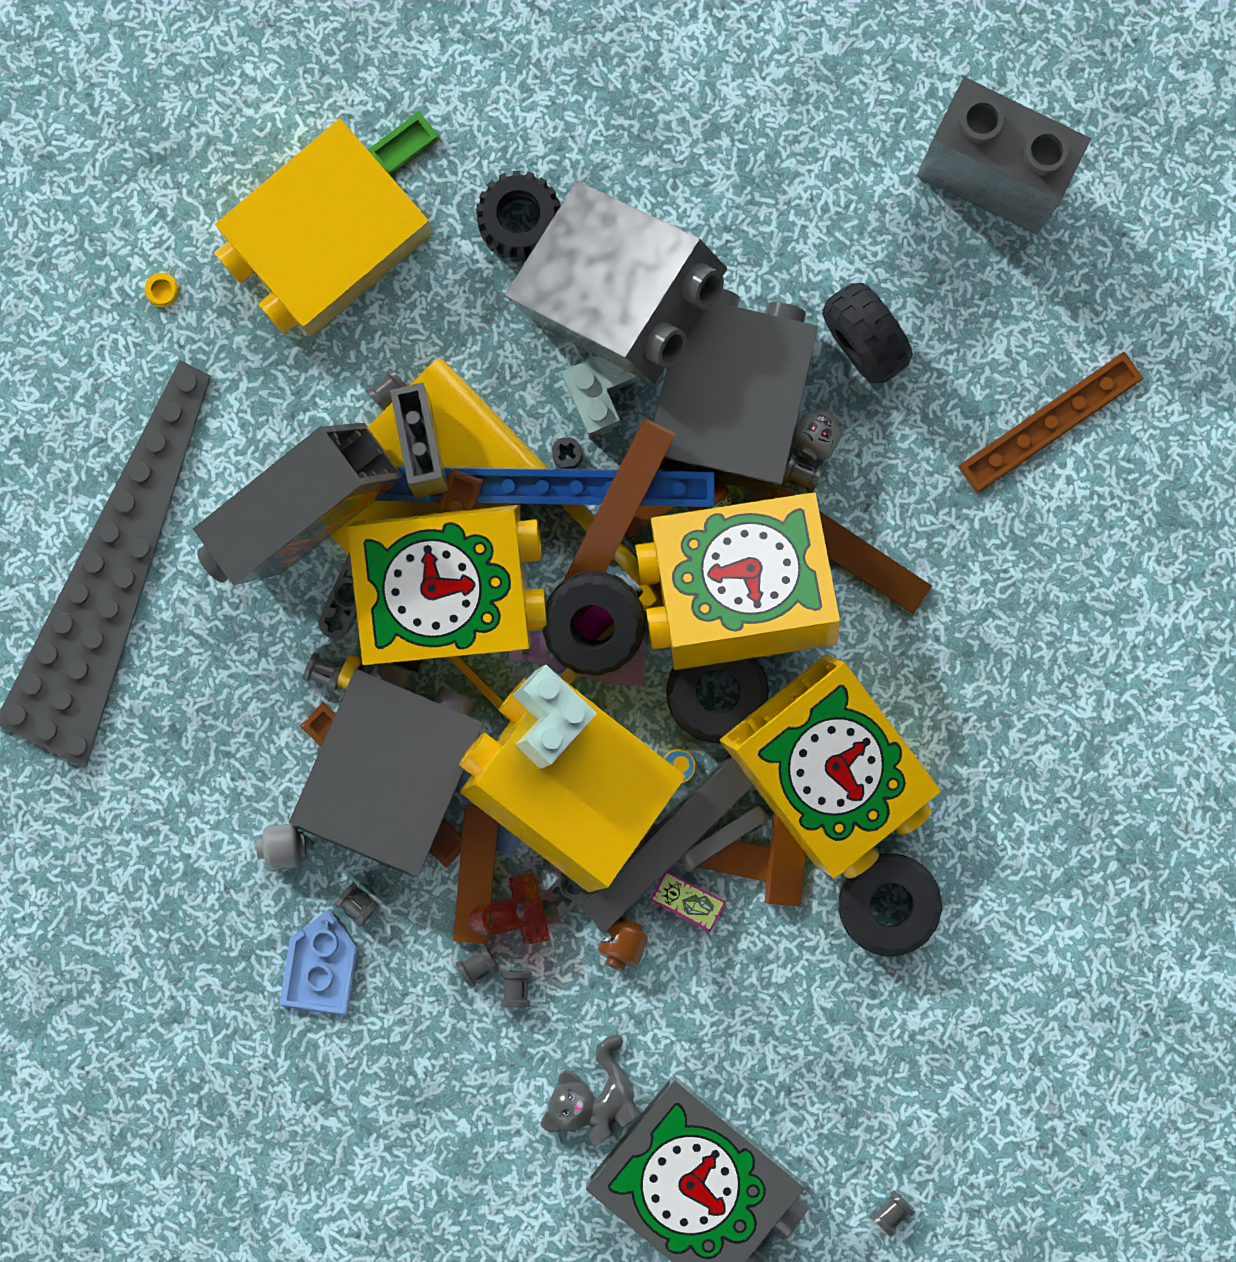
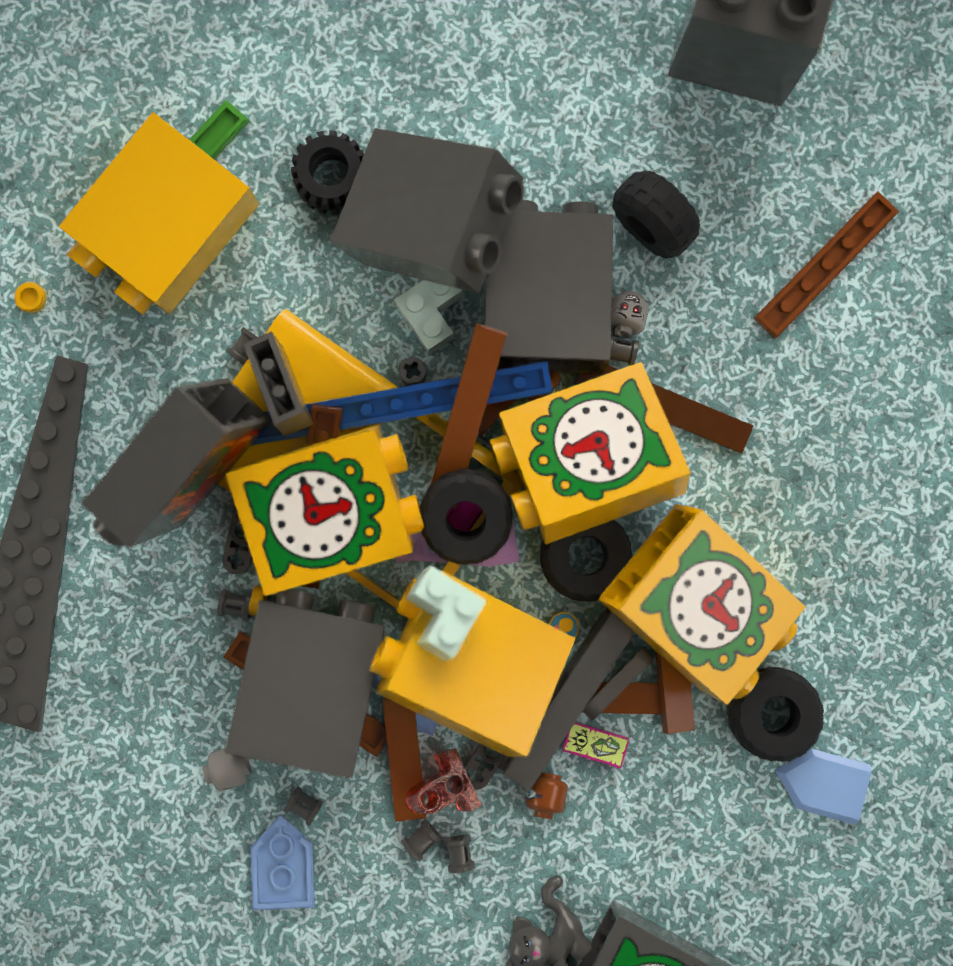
camera: 20 degrees left, 0 degrees up
(932, 995) = (826, 784): none -> light blue tile

